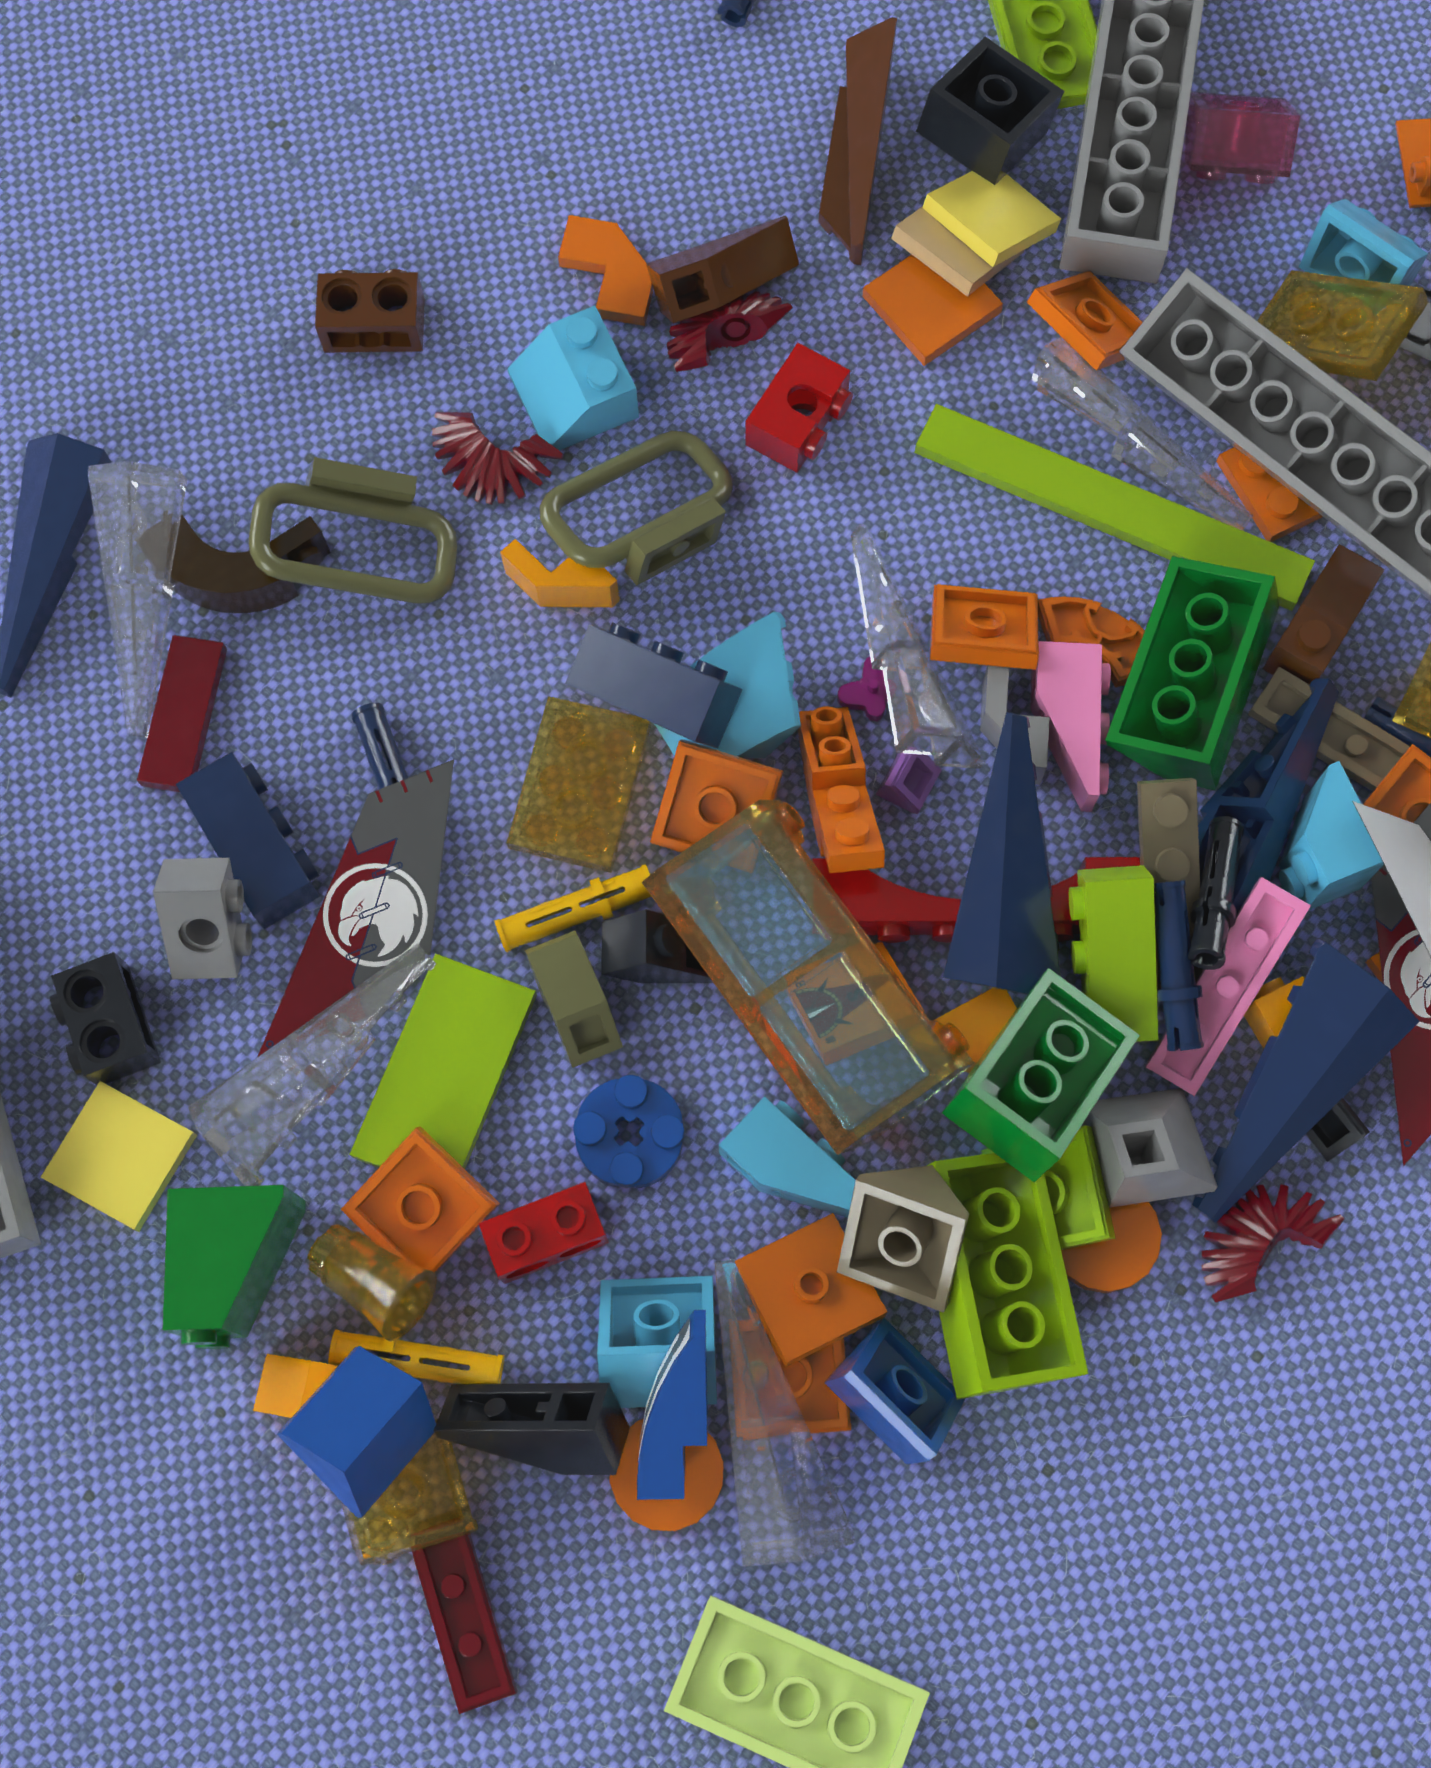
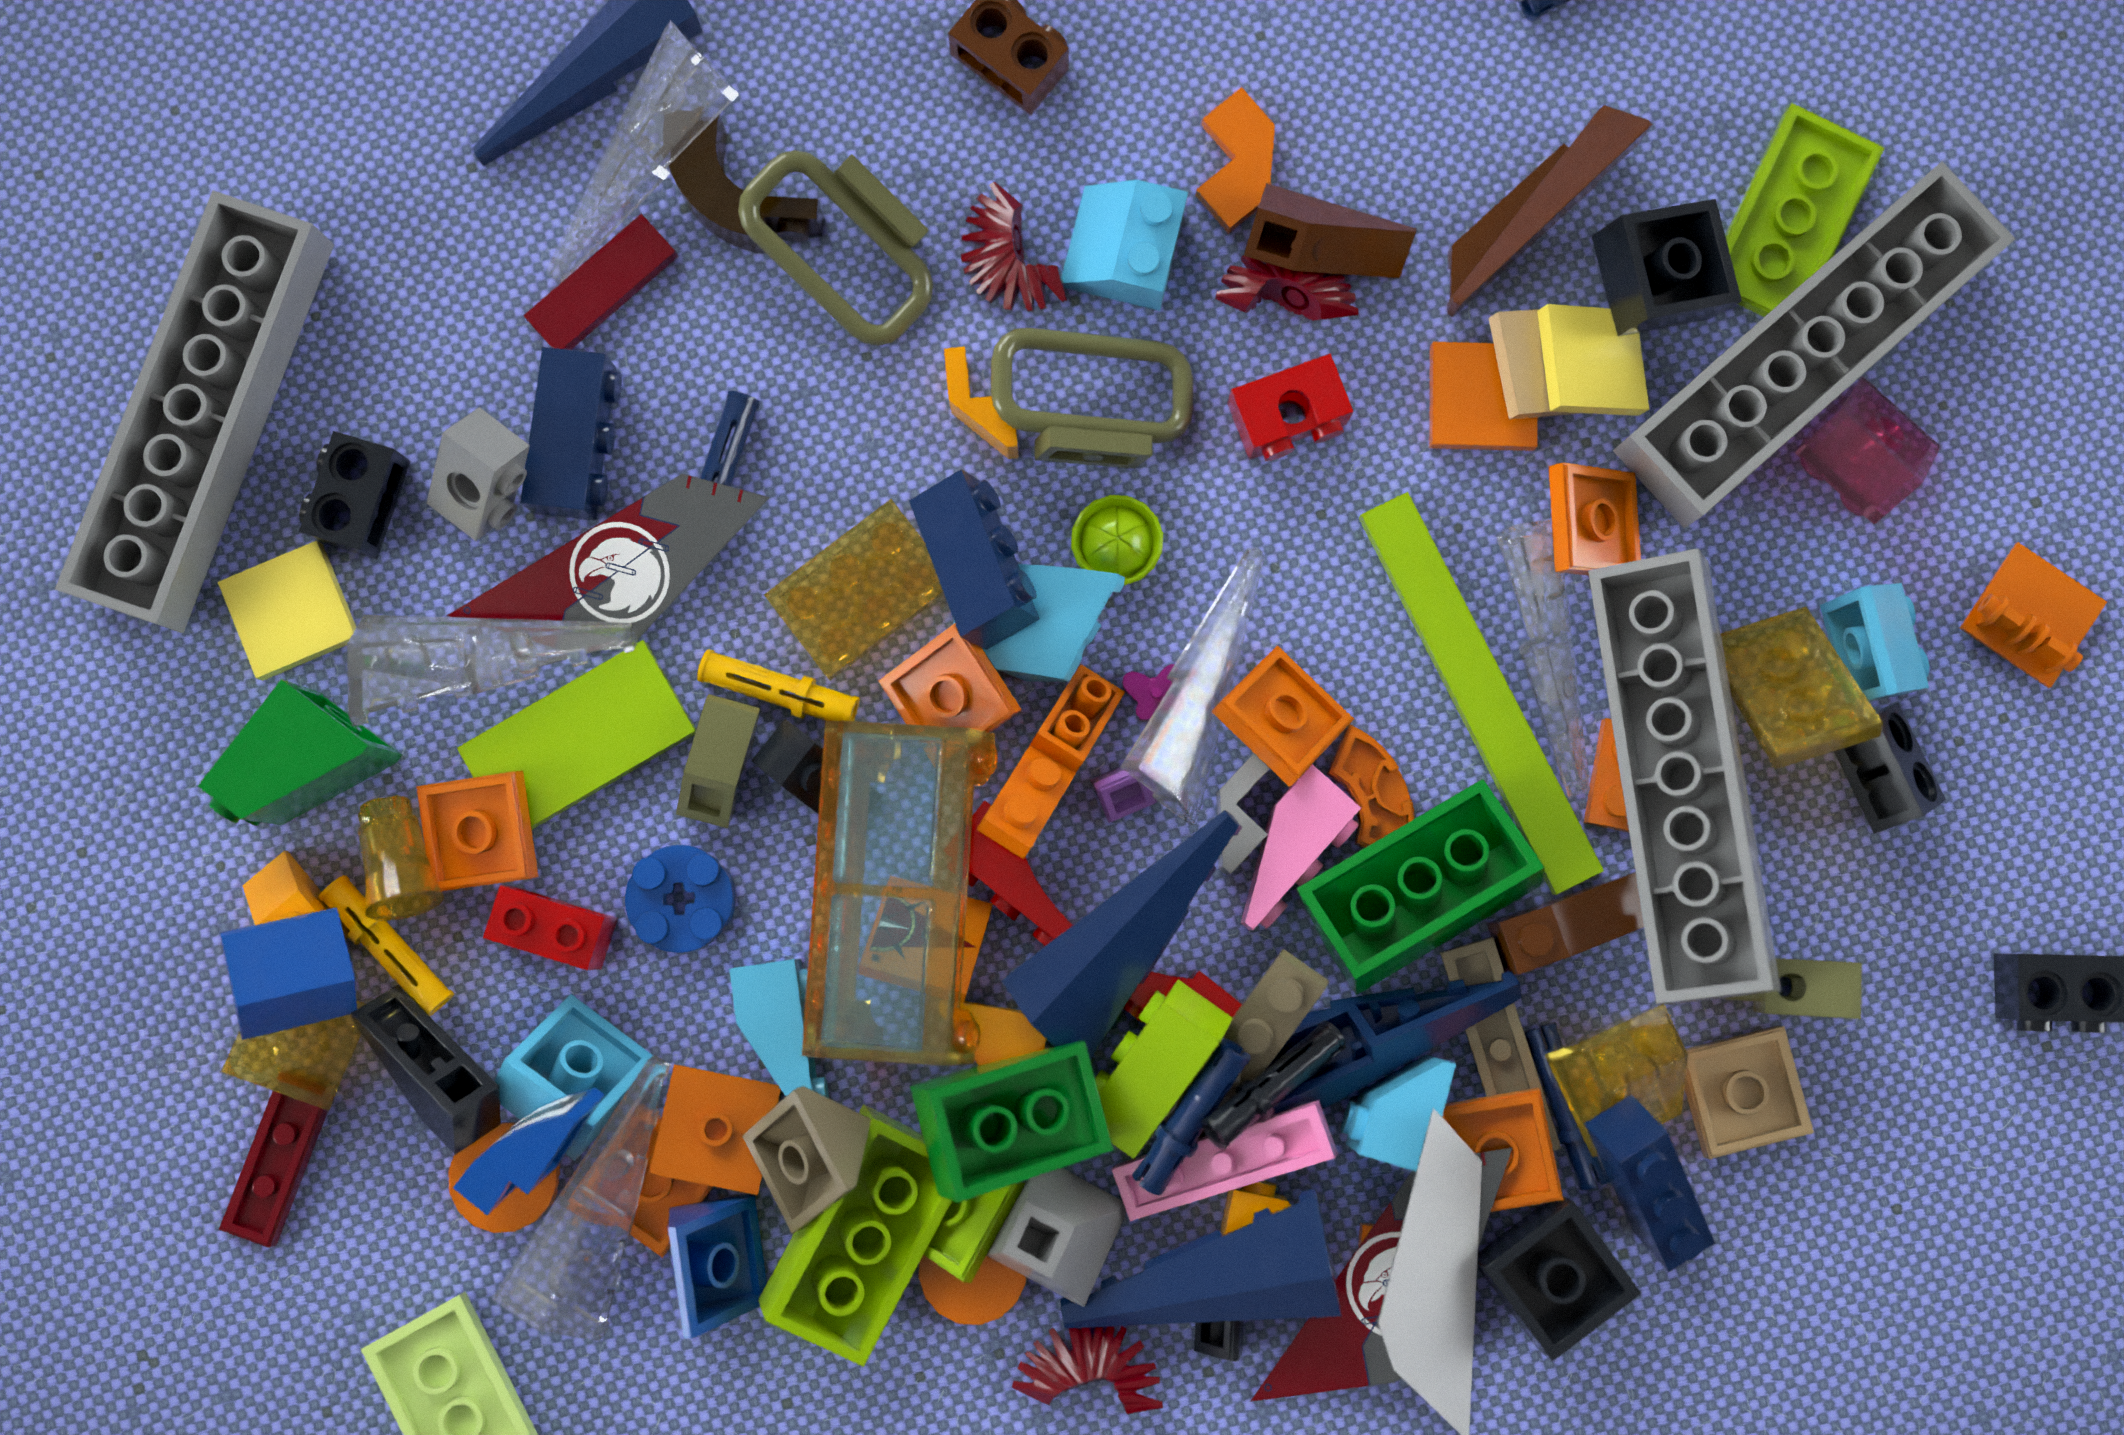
camera: 35 degrees right, 10 degrees up
(746, 592) = (1117, 537): none -> lime hat

